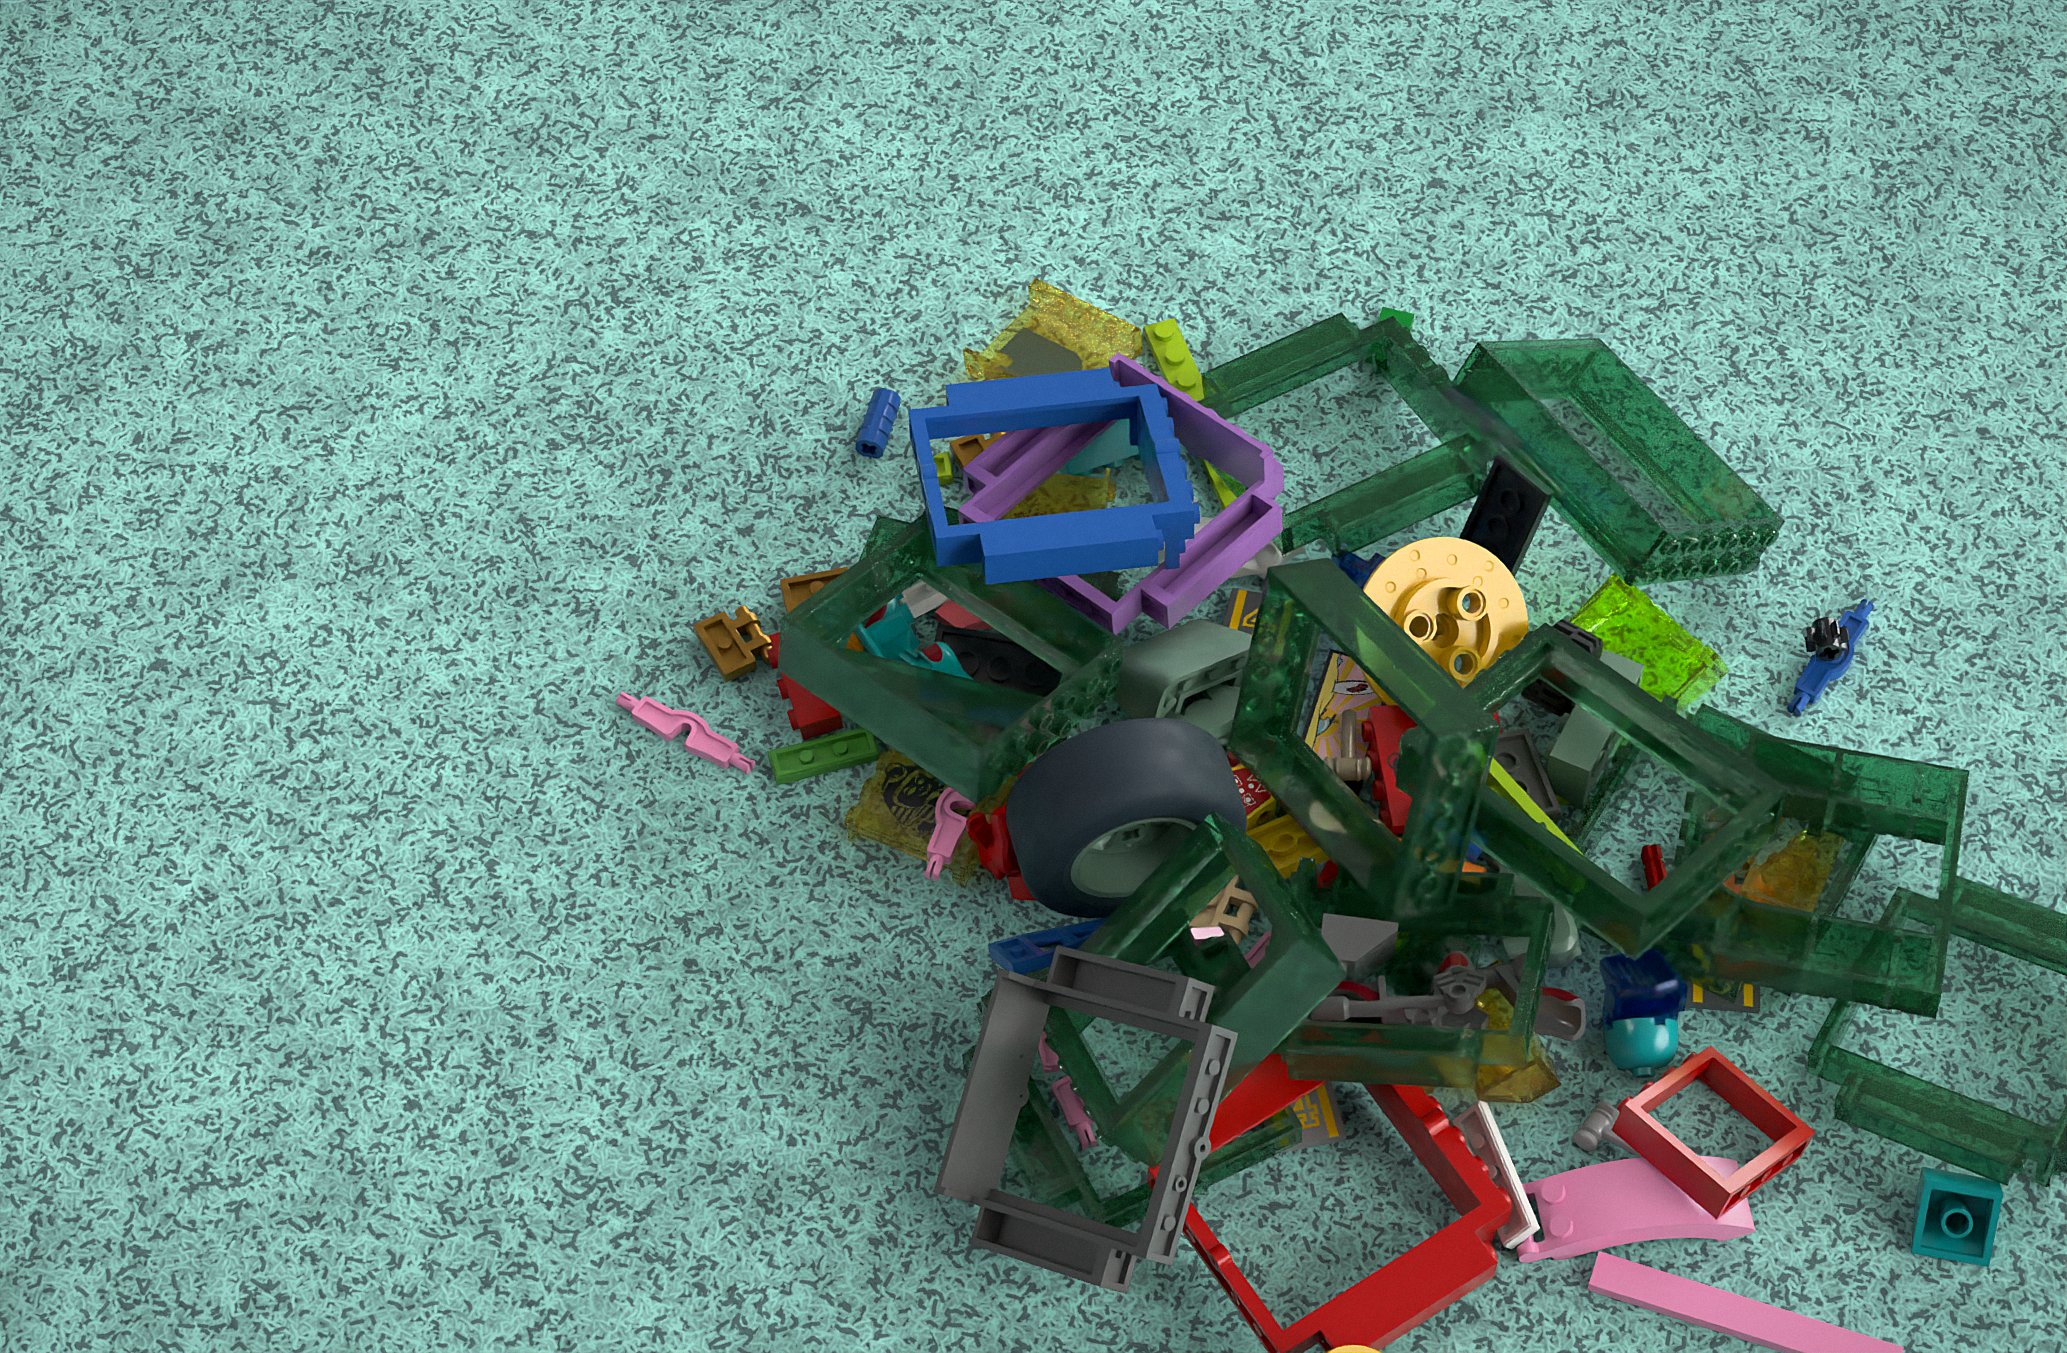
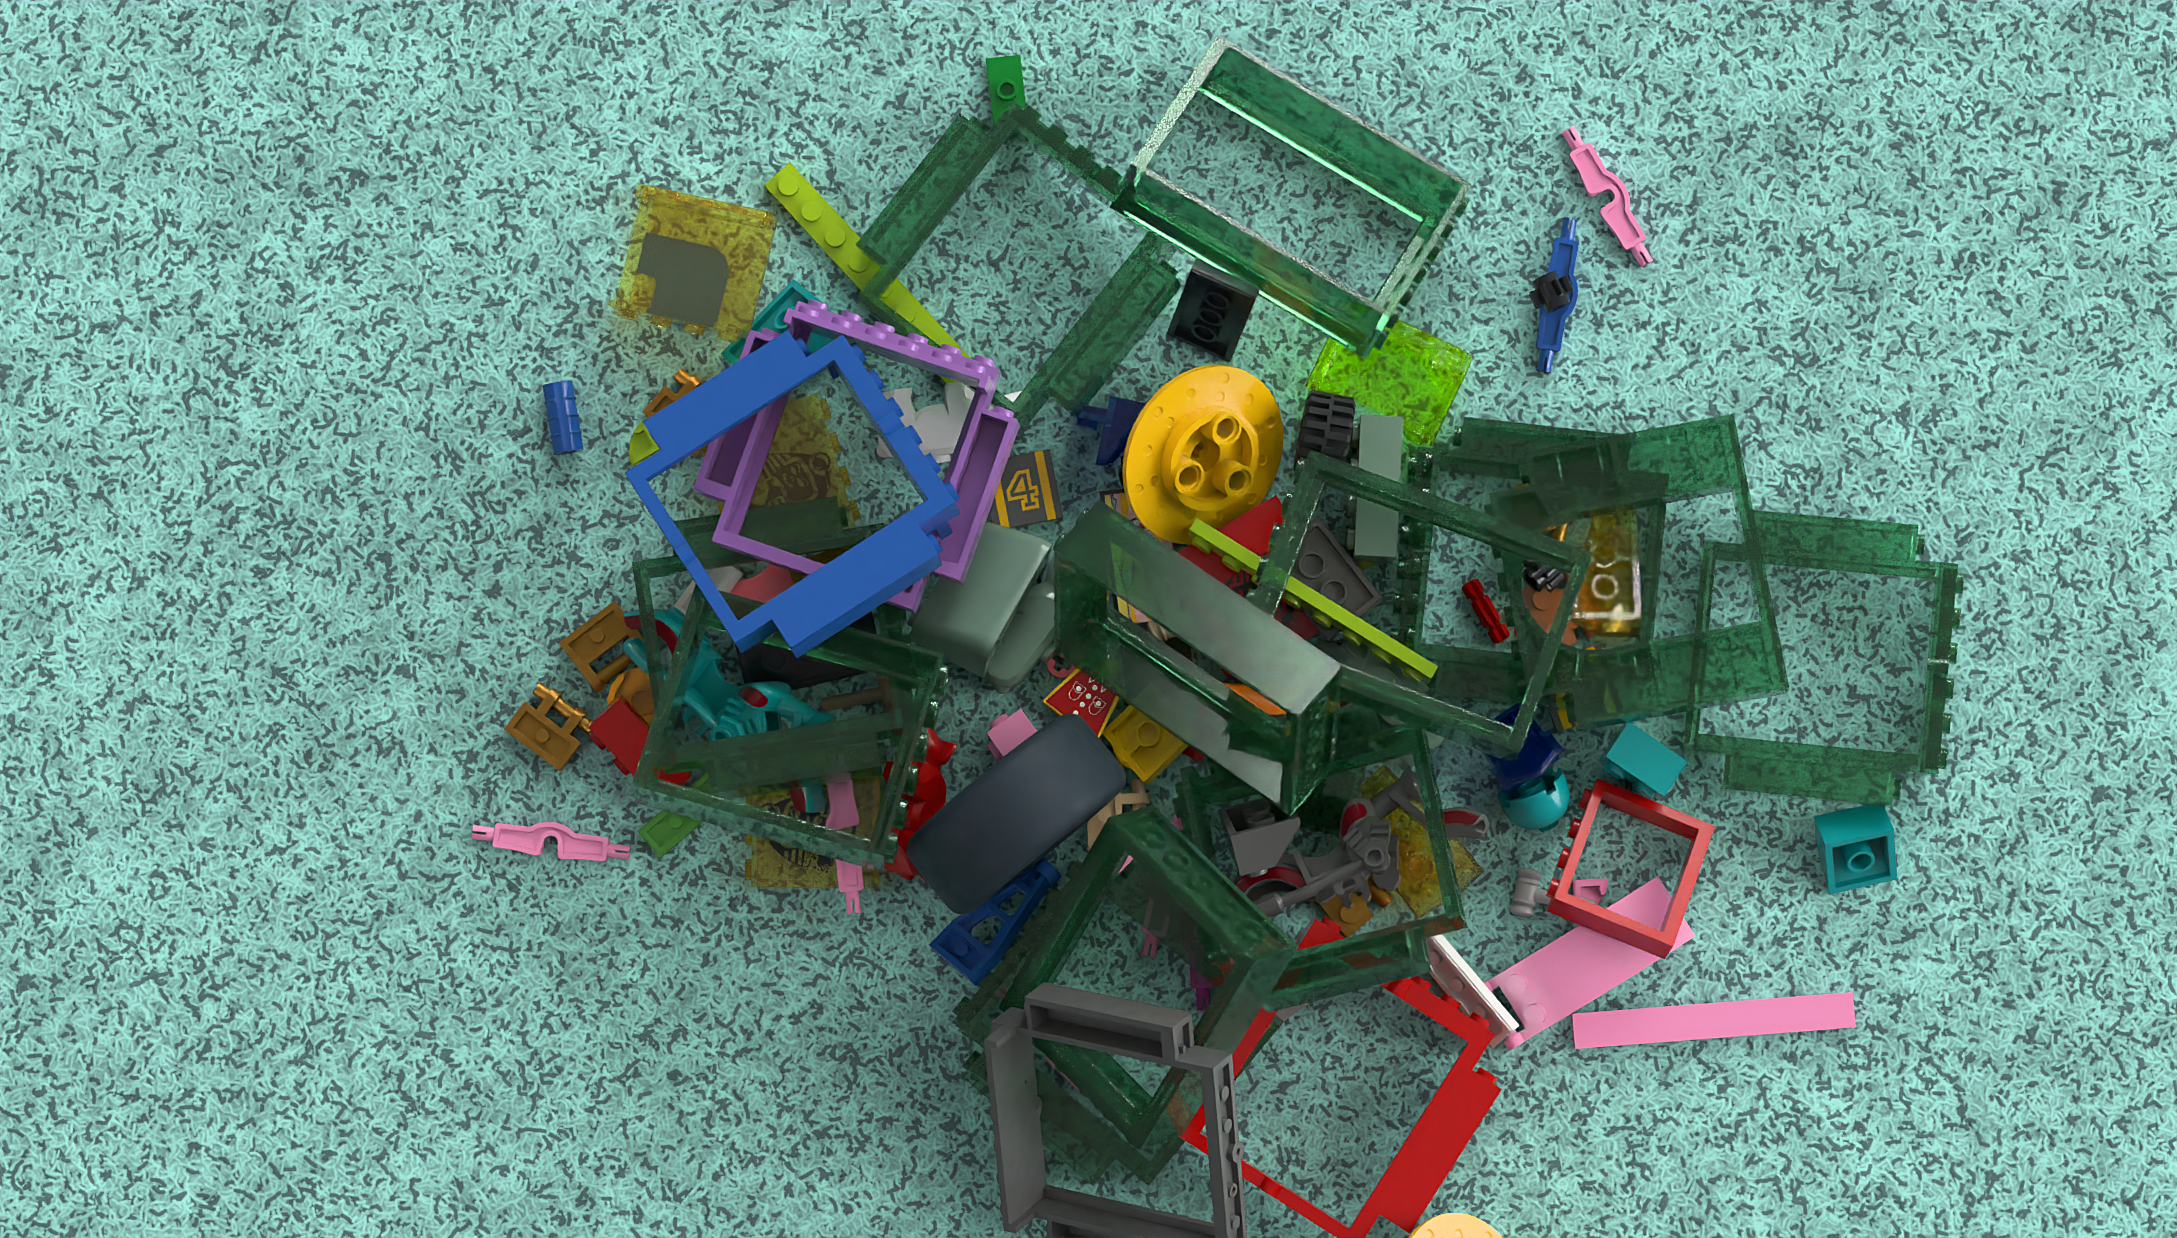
camera: 30 degrees left, 30 degrees up
(1763, 1043) = (1642, 762): none -> teal brick
(1912, 615) = (1597, 180): none -> bright pink piece

